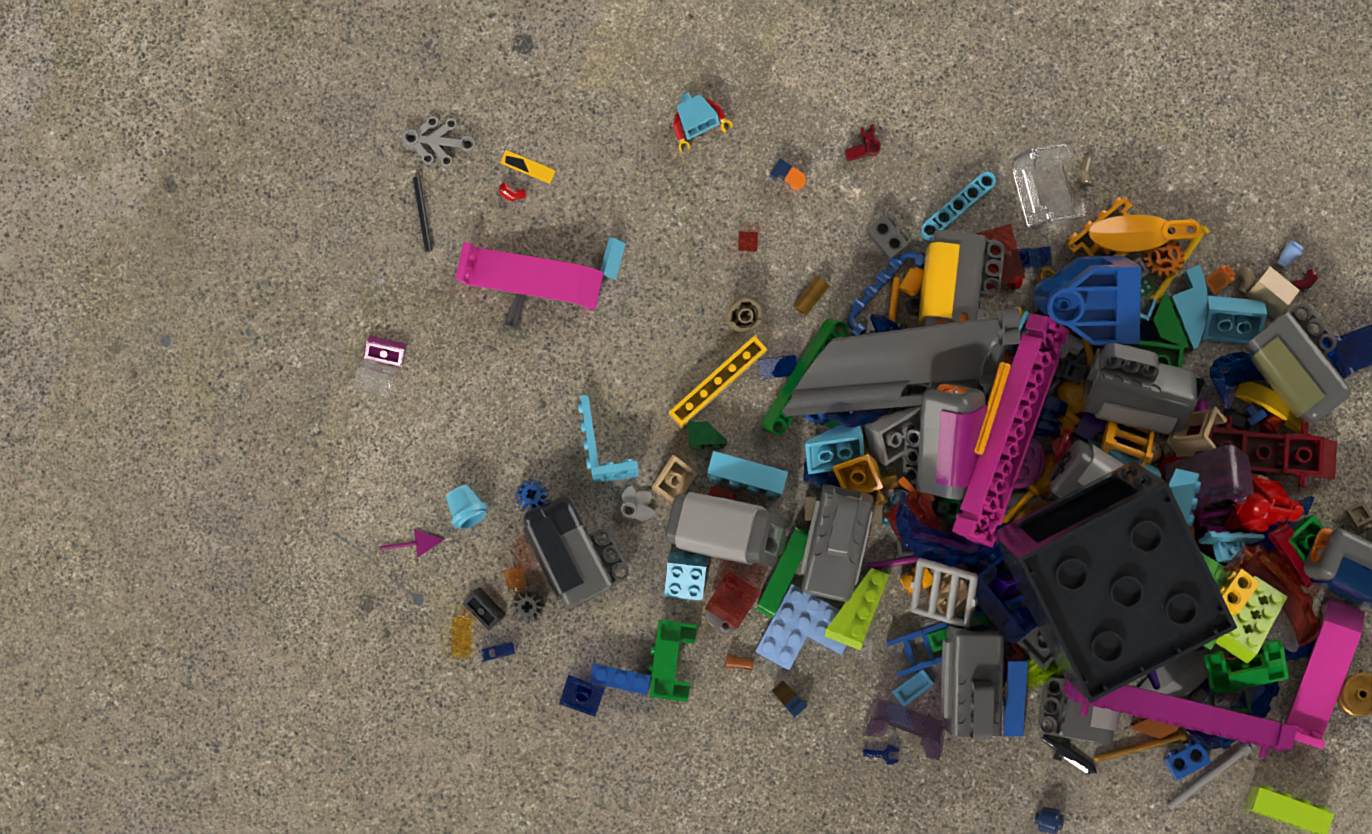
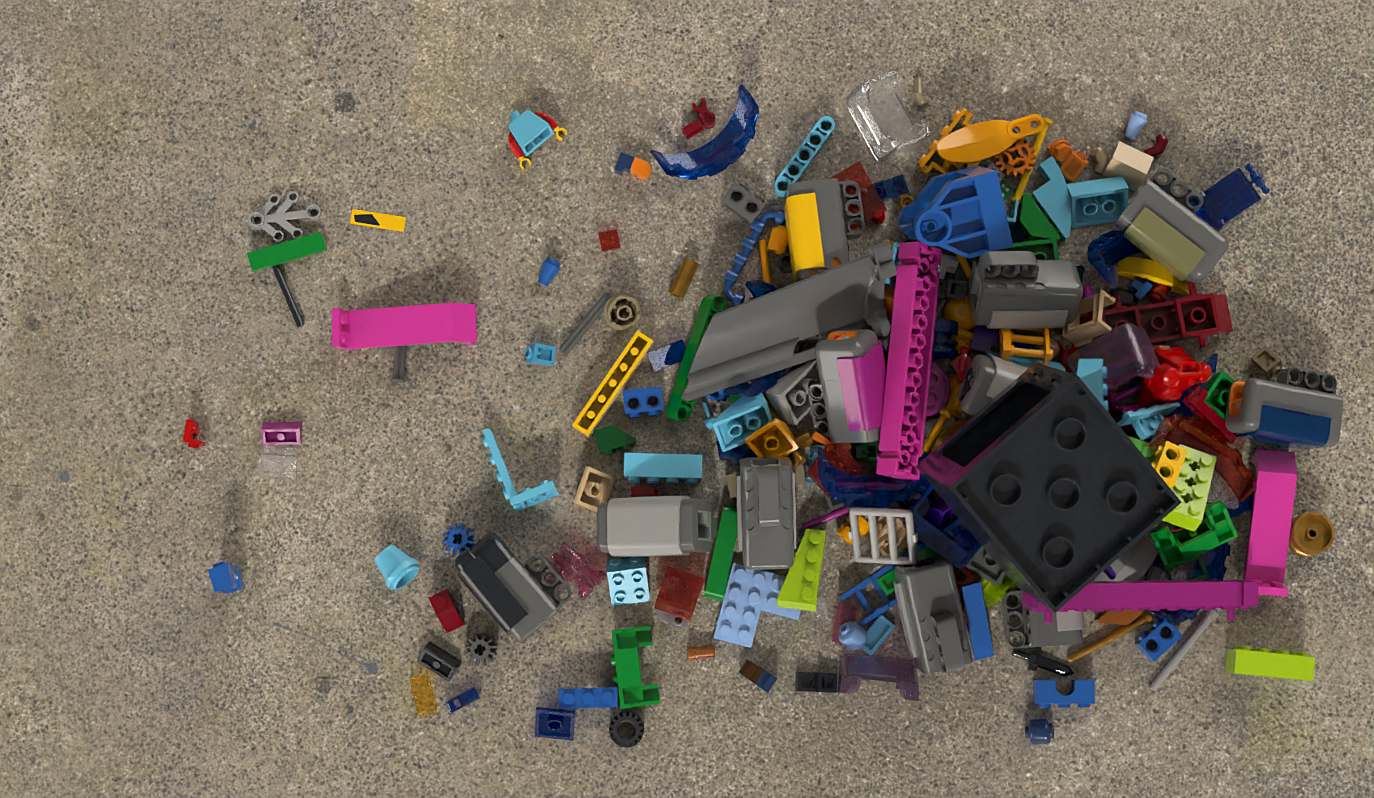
camera: 10 degrees left, 0 degrees up
(299, 327) = (192, 430): none -> red bracket
(299, 477) = (226, 578): none -> blue arch
(422, 541) = (363, 610): magenta piece -> none
(432, 176) = (286, 251): none -> green tile
(501, 558) = (446, 610): none -> dark red slope
(509, 194) = (367, 251): red arm -> none
(515, 579) = (462, 625): clear orange bracket -> none
(612, 258) = (481, 288): medium azure tile -> none
(637, 719) = (626, 741): none -> black tyre
(638, 502) = (565, 521): light grey plate -> none
(639, 548) = (574, 566): none -> clear pink piece
(654, 335) = (540, 354): none -> dark azure bracket
(681, 257) = (548, 271): none -> blue cone
(704, 317) = (585, 324): none -> dark grey axle
(743, 401) = (642, 396): none -> blue brick
(801, 441) = (708, 422): none -> medium azure hand
(844, 719) = (816, 682): none -> black slope
(876, 181) = (719, 152): none -> clear blue windscreen
(881, 754) = (861, 707): clear blue bar -> none
(885, 669) = (844, 614): none -> clear pink slope
(890, 682) = (852, 635): none -> medium blue head
(993, 403) = (885, 339): light orange axle -> none
(1099, 793) = (1081, 693): none -> blue arch
(1209, 261) = (1060, 150): none -> orange piece

